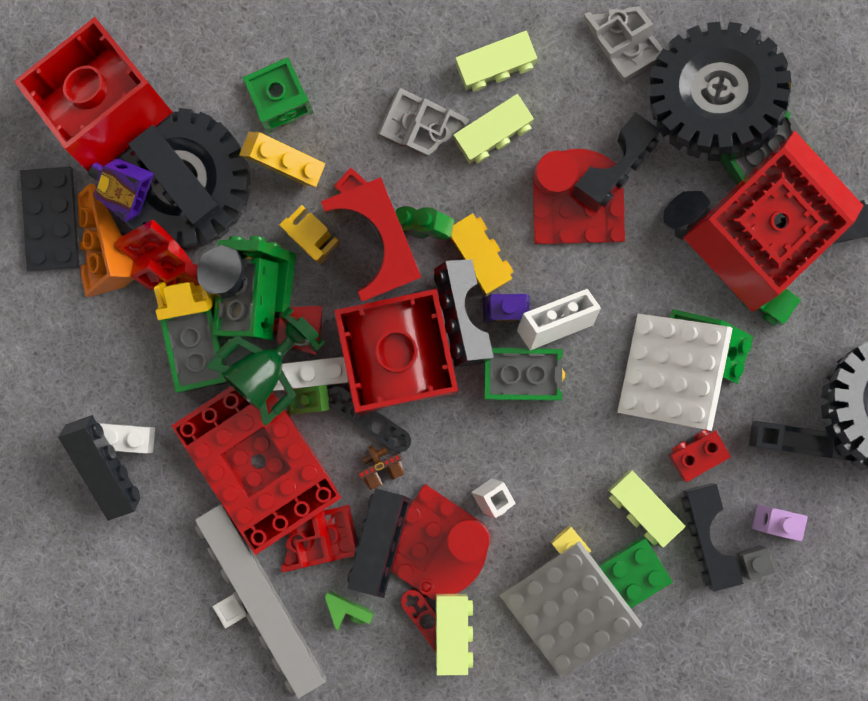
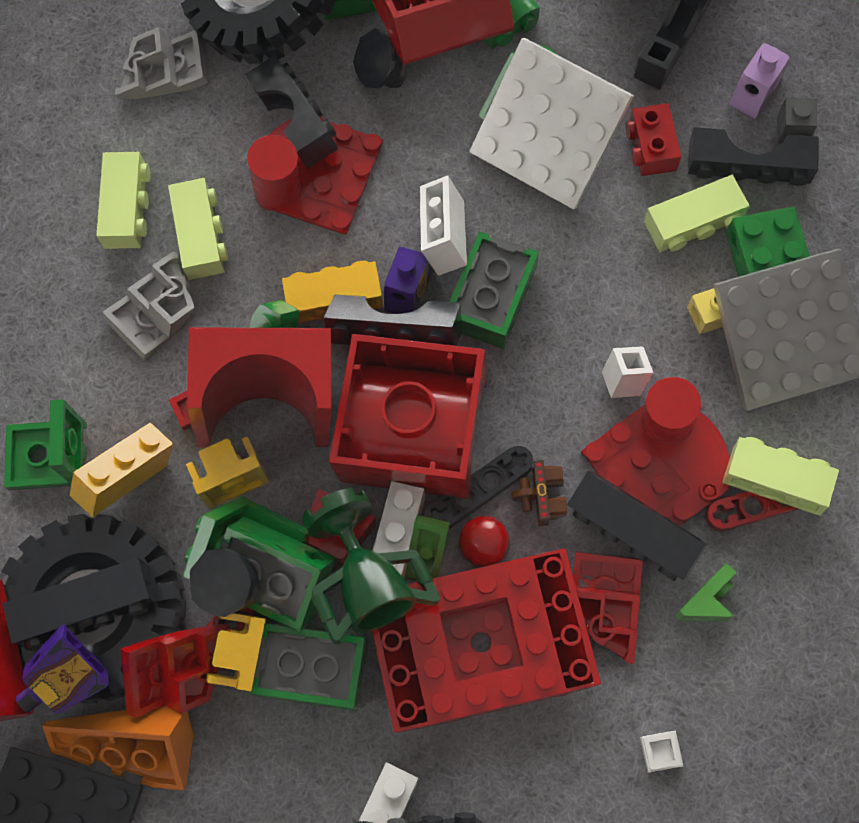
camera: 60 degrees left, 15 degrees down
(261, 601) = (662, 703): light grey brick -> none
(332, 437) = (484, 541): none -> red hair

